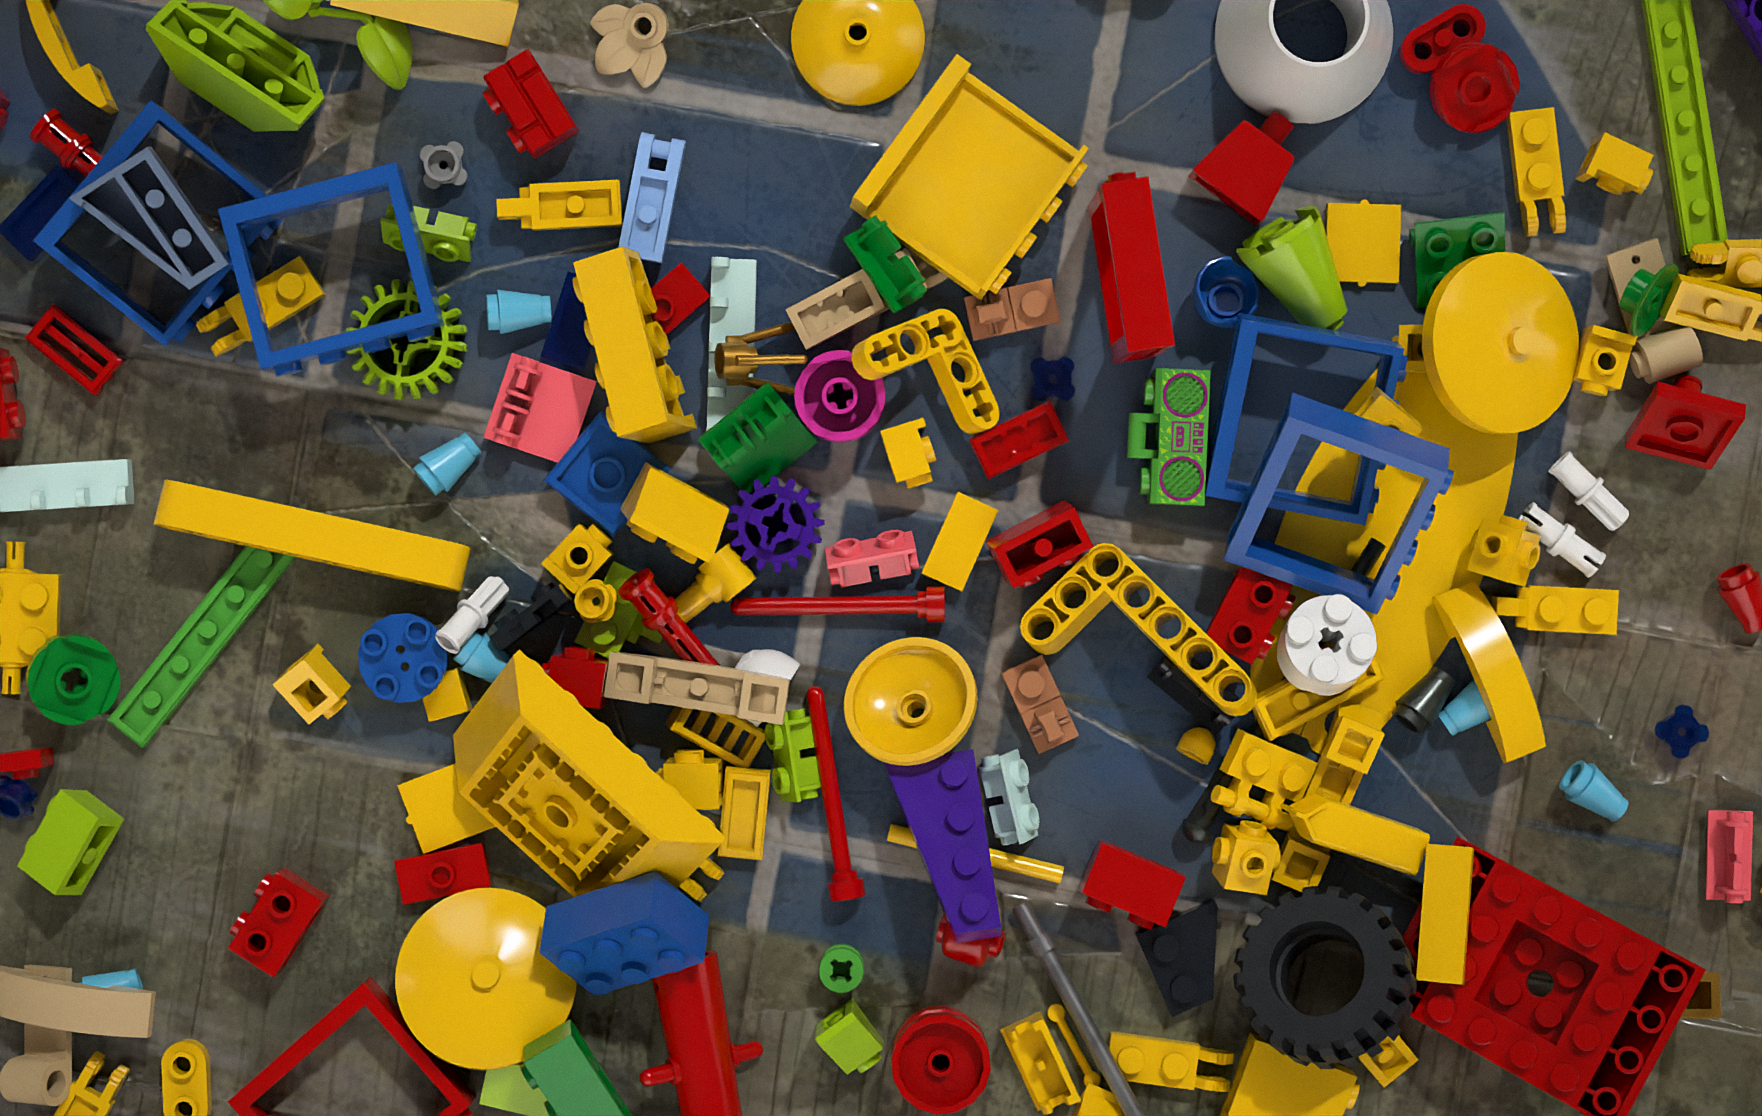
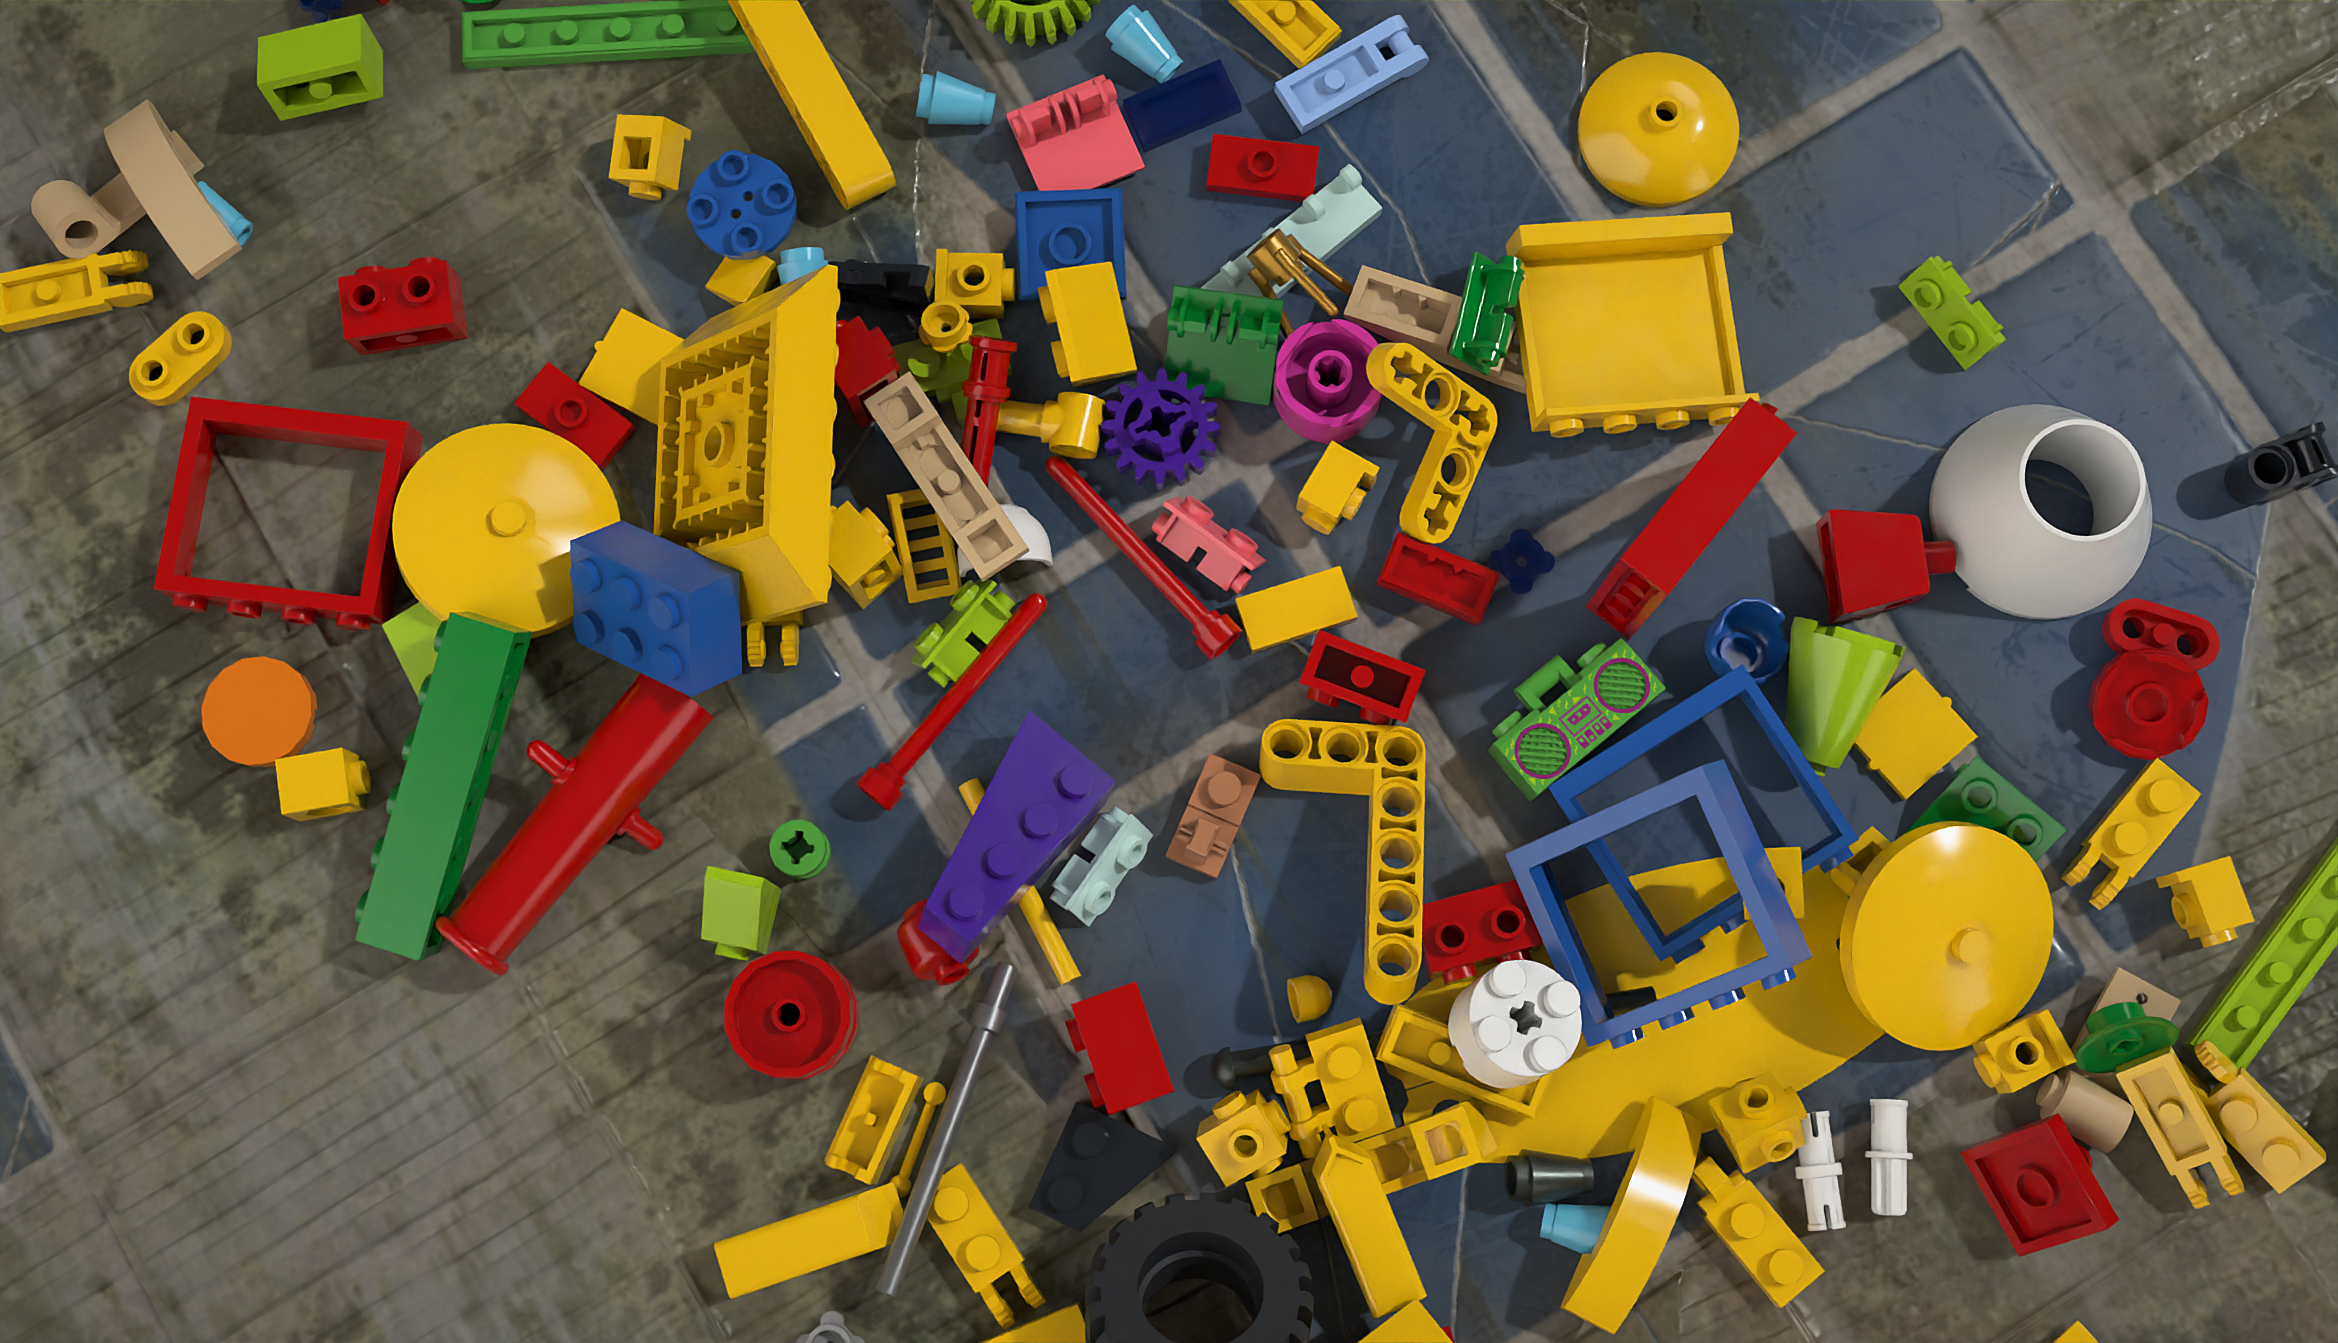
camera: 50 degrees right, 10 degrees down
(472, 614) = (835, 232): white axle -> none
(629, 348) = (1201, 160): yellow wedge -> none
(744, 812) = (868, 633): yellow tile -> none
(900, 680) = (1112, 668): yellow dish -> none
(1012, 310) = (1548, 471): nougat hinge -> none
(1190, 696) = (1347, 948): black hinge -> none

